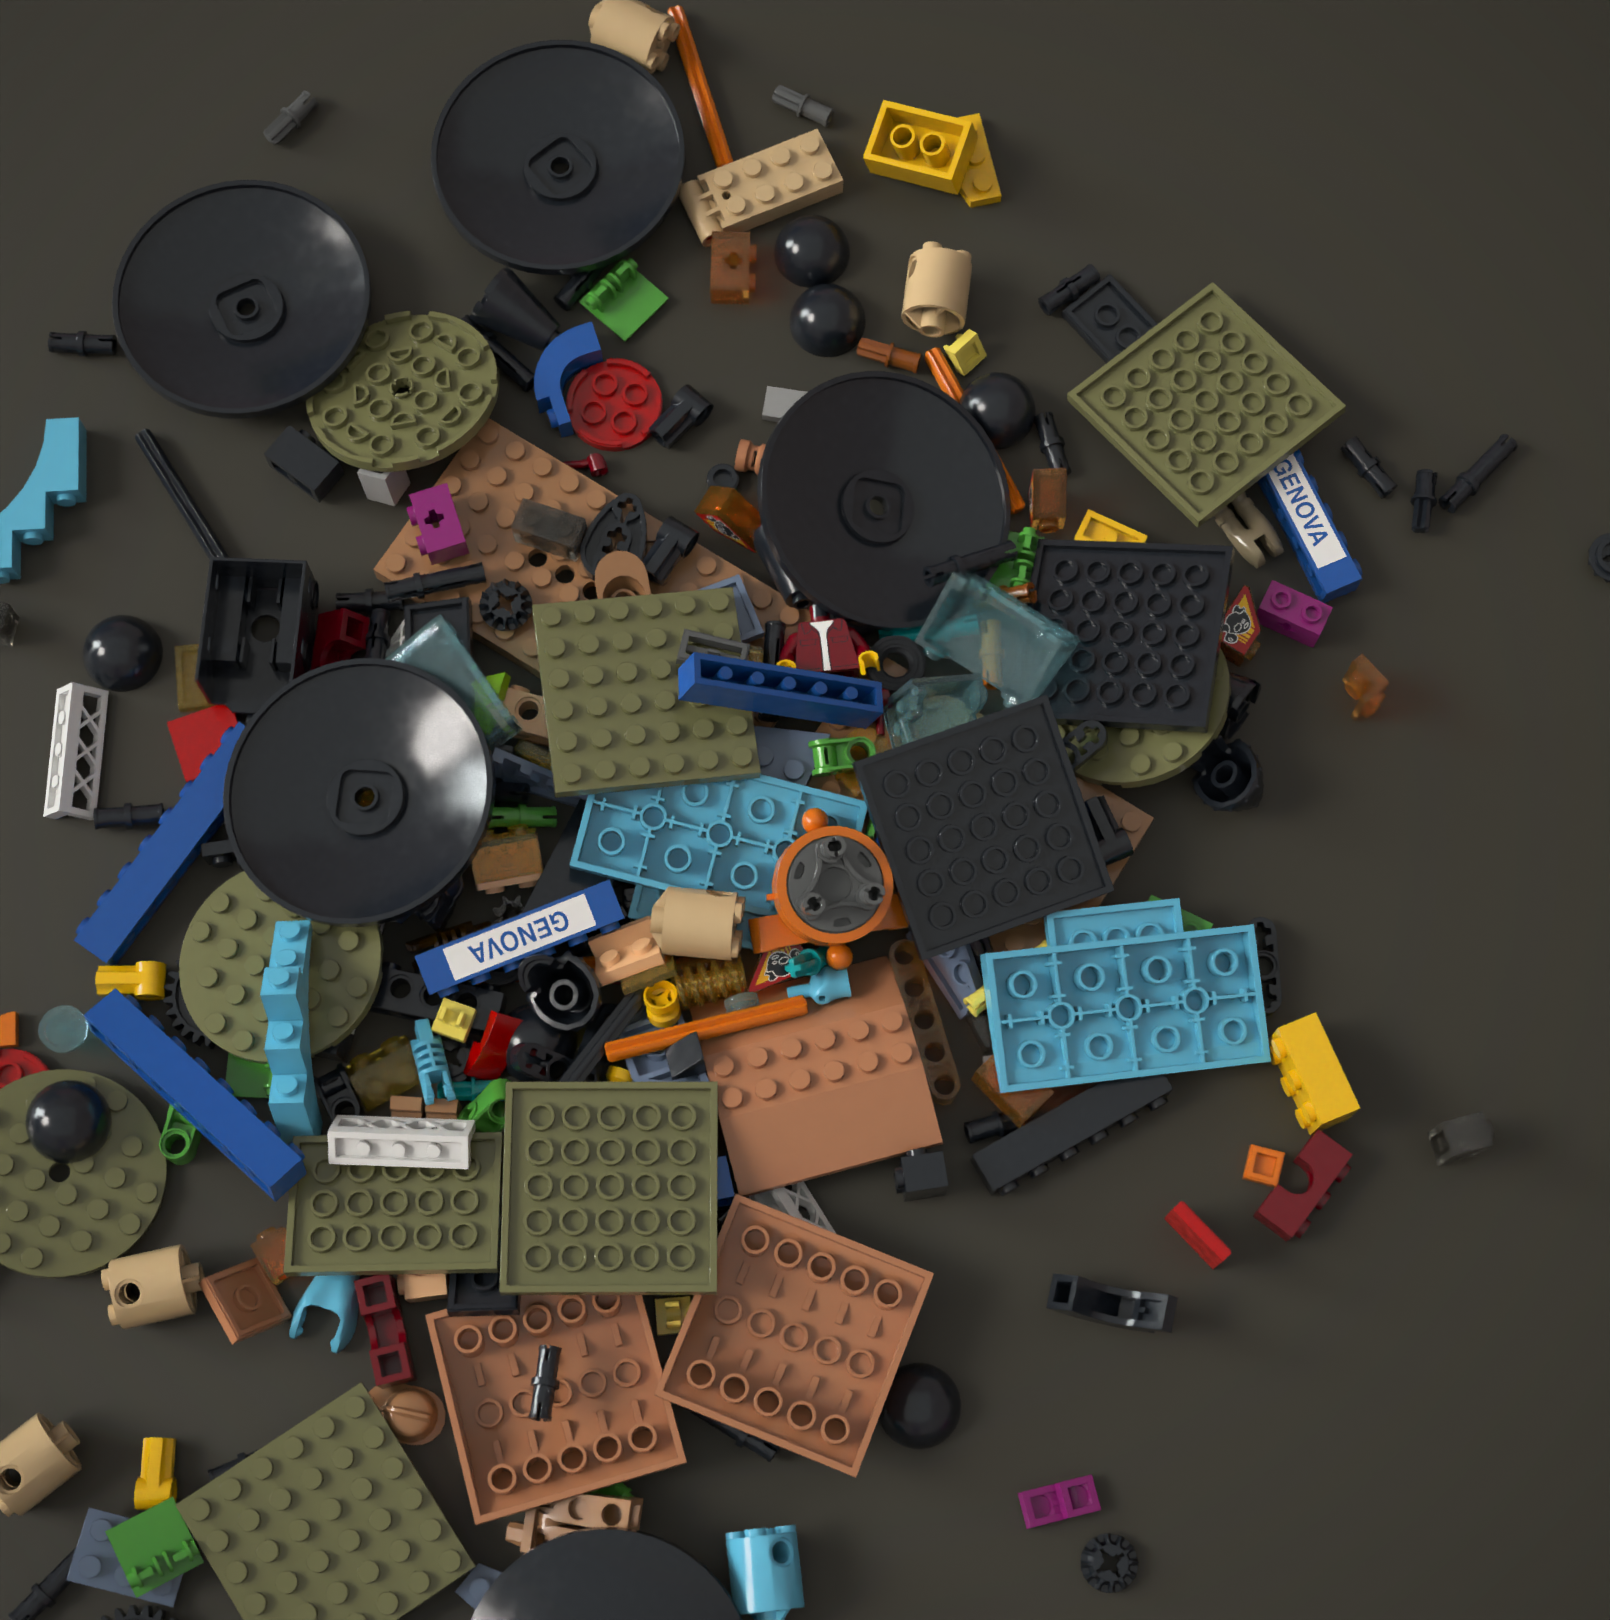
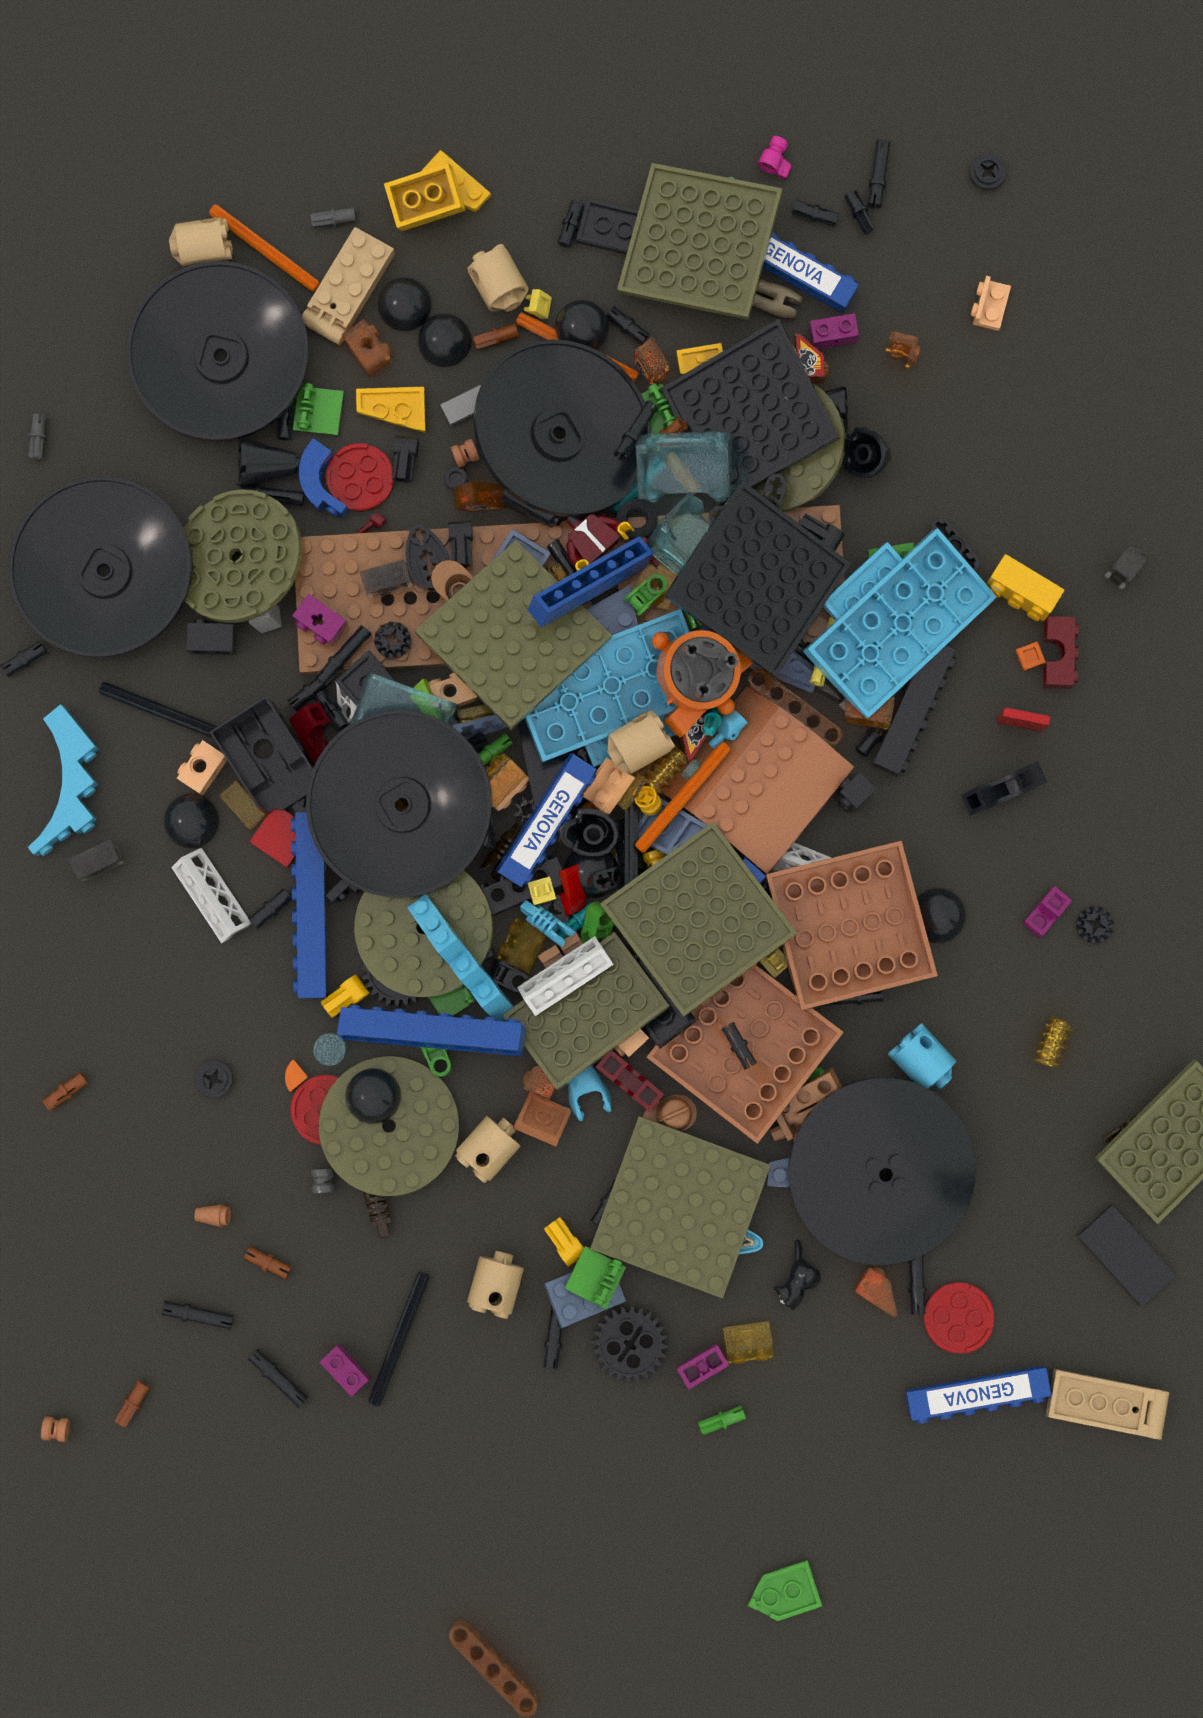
camera: 30 degrees left, 10 degrees up
(159, 598) = (214, 763): none -> light nougat brick
(685, 1057) = (684, 820): black slope -> none
(709, 640) = (526, 600): dark grey tile -> none
(714, 352) = (394, 405): none -> yellow wing
(1360, 372) = (772, 159): none -> dark pink piece
(1509, 712) = (991, 304): none -> light nougat bracket

